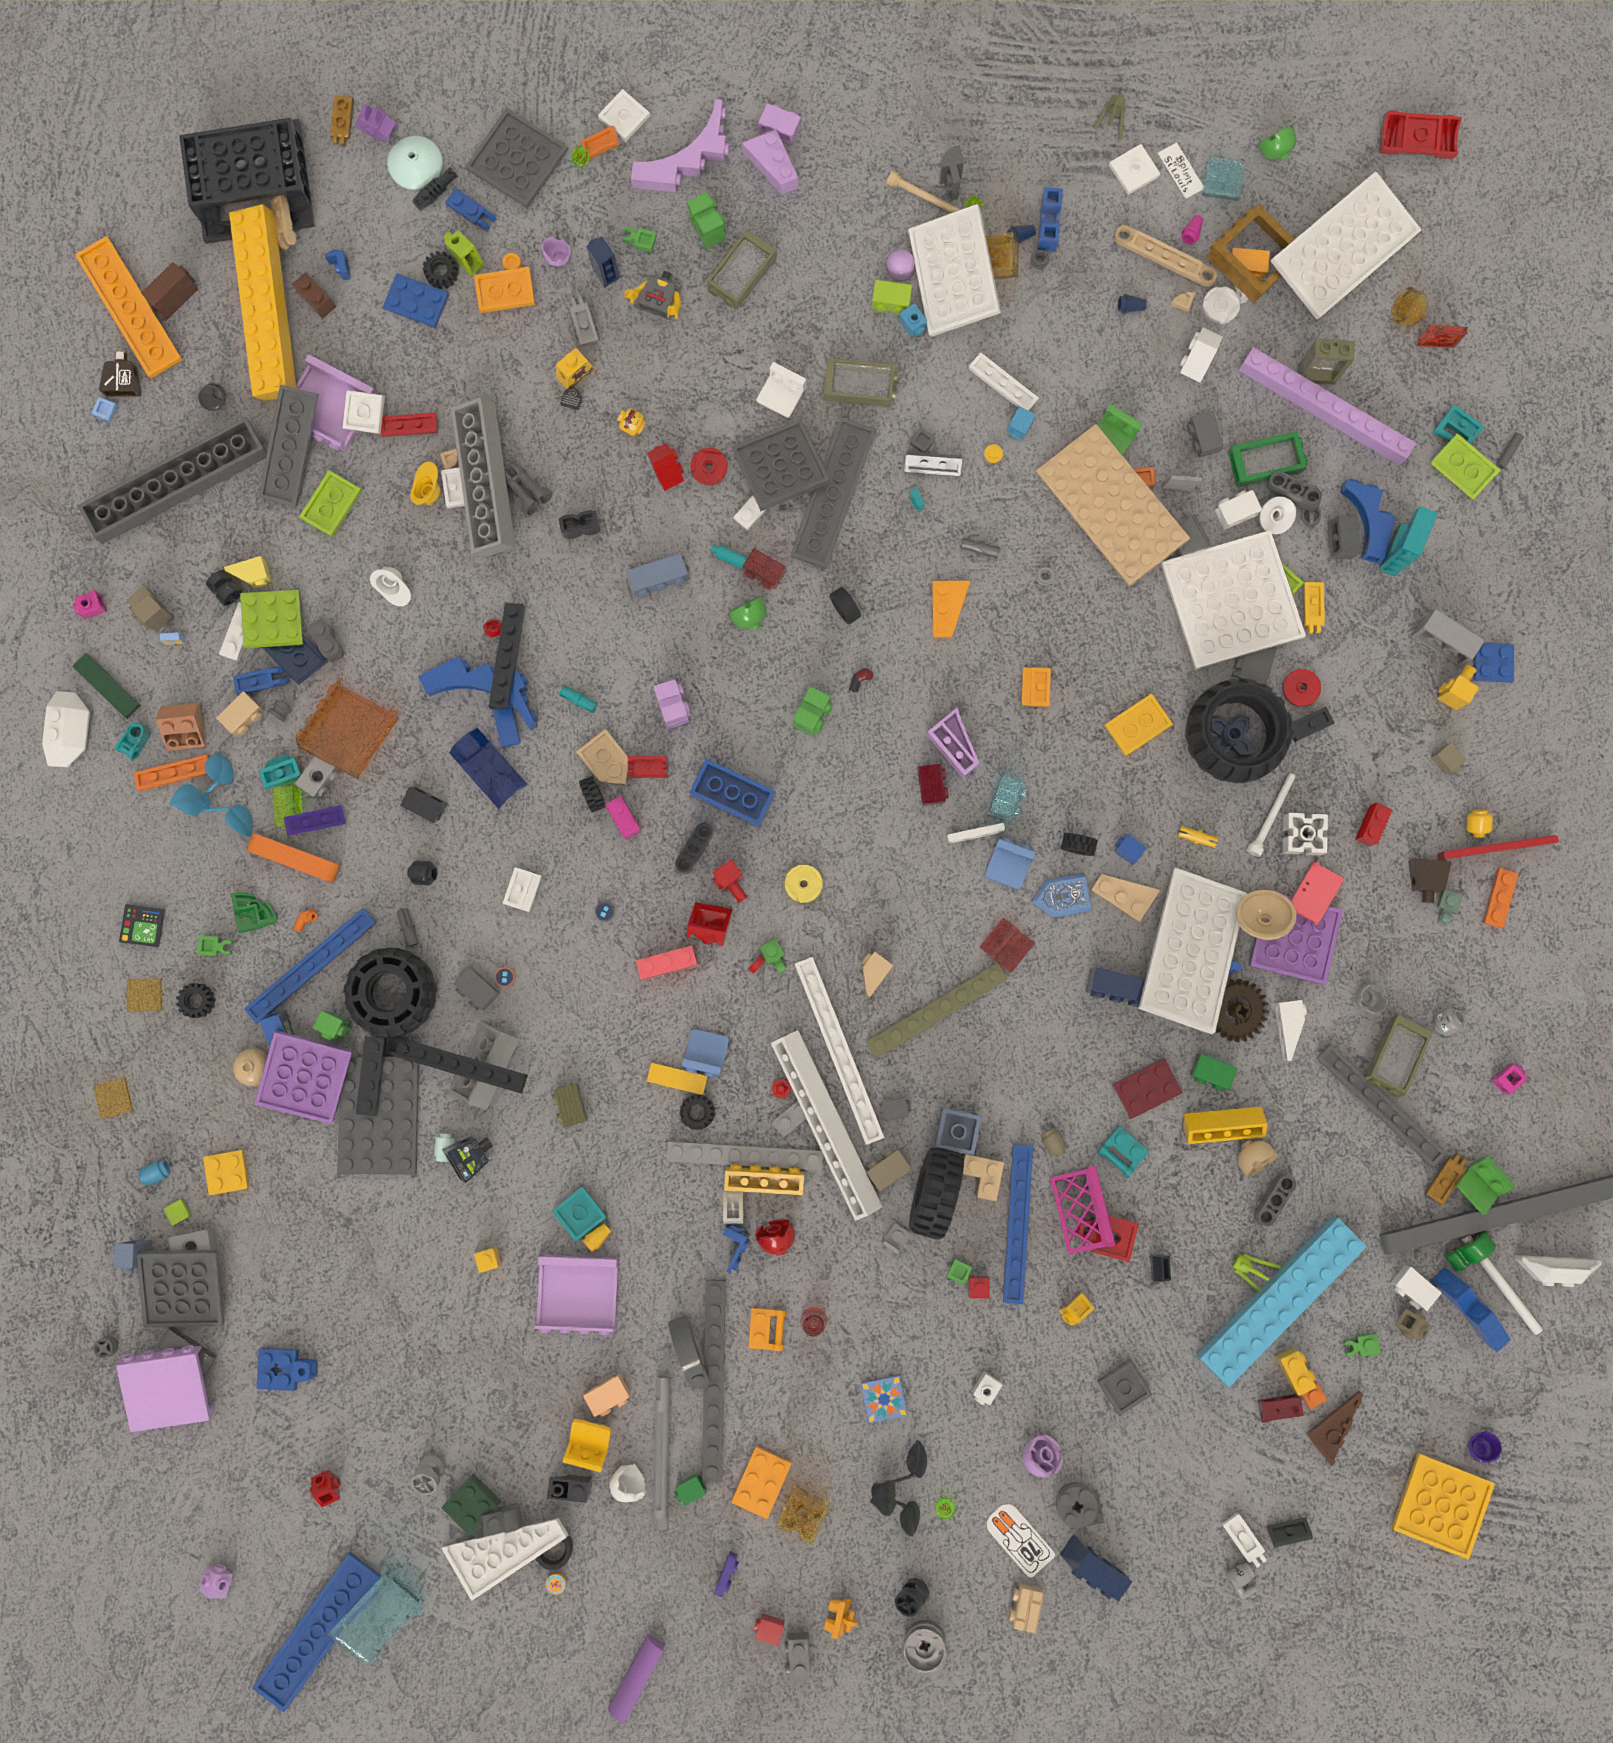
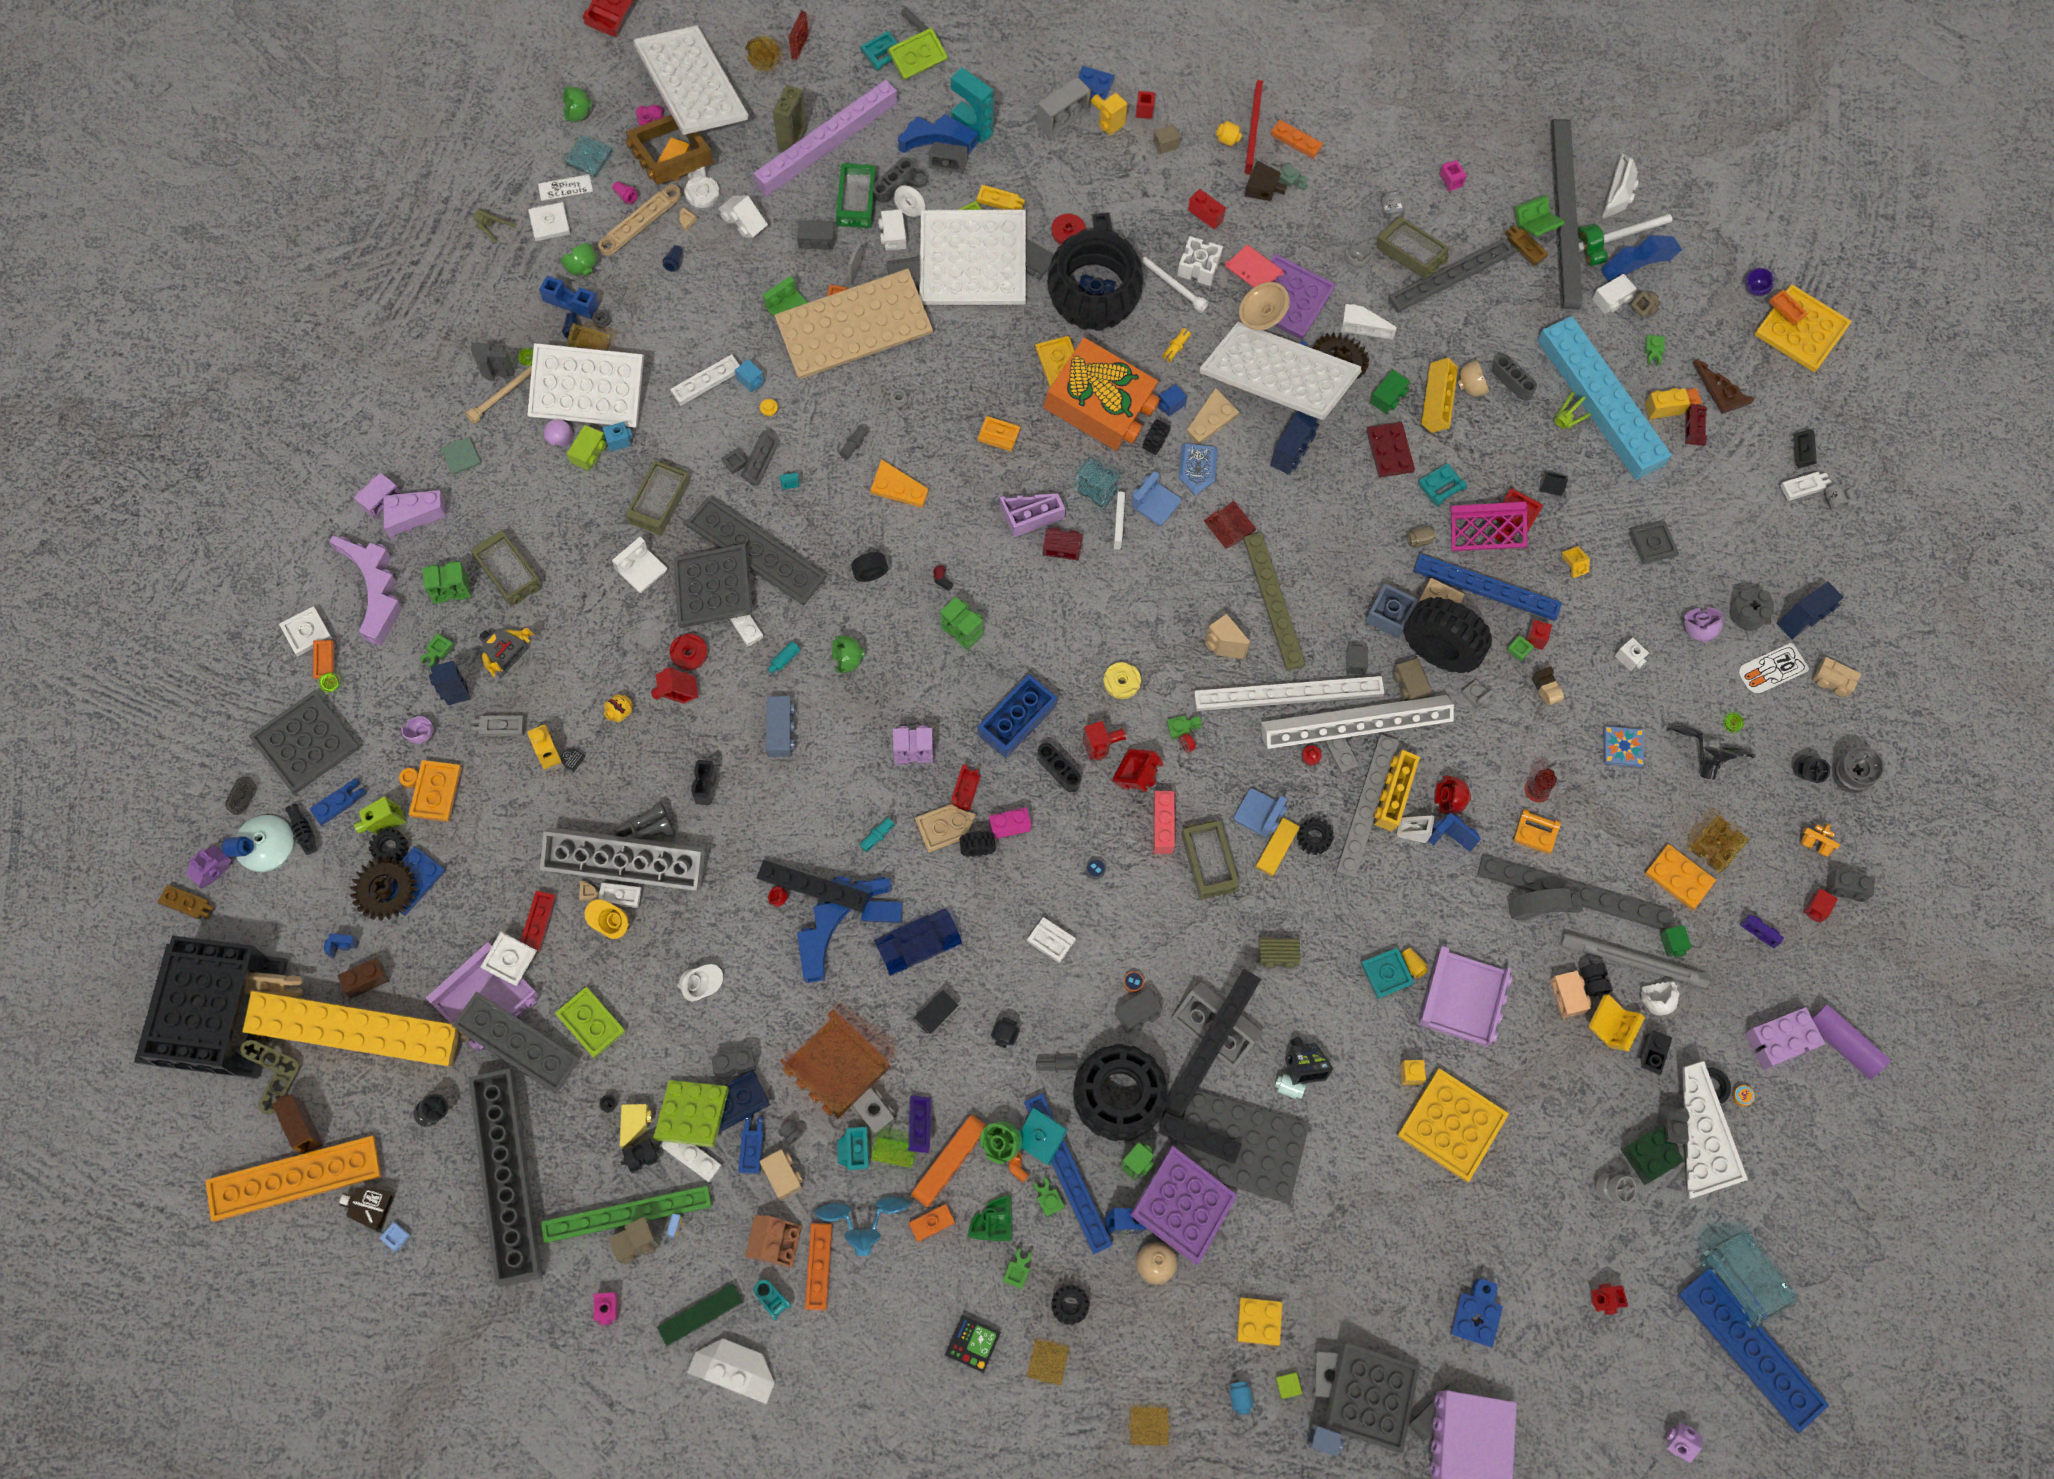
camera: 80 degrees left, 15 degrees down
(172, 594) = (624, 1214): none -> bright green plate
(212, 260) = (278, 1075): none -> olive beam
(235, 858) = (931, 1223): none -> orange plate
(259, 541) = (611, 1101): none -> black hinge
(283, 957) = (1050, 1200): none -> bright green plate
(319, 898) = (1001, 1141): none -> bright green cylinder
(333, 932) = (1042, 1136): none -> teal plate
(387, 271) = (373, 877): none -> dark brown gear
(397, 140) = (237, 846): none -> blue brick
(450, 1308) = (1453, 1125): none -> yellow plate
(451, 124) = (240, 796): none -> clear smoke plate
(621, 1615) = (1785, 1038): none -> lavender piece
(626, 1418) = (1596, 982): none -> black wheel
(643, 1016) = (1210, 859): none -> window
(764, 569) = (808, 629): clear red brick -> none
(848, 184) = (460, 455): none -> sand green piece
(924, 1309) = (1547, 686): none -> leg
(1095, 215) = (580, 261): none -> bright green cylinder
(1107, 776) = (1102, 395): none -> orange brick
(1295, 221) = (647, 115): none -> dark pink plate
(1459, 1484) = (1788, 307): none -> orange plate
(1483, 724) = (1145, 104): none -> red brick

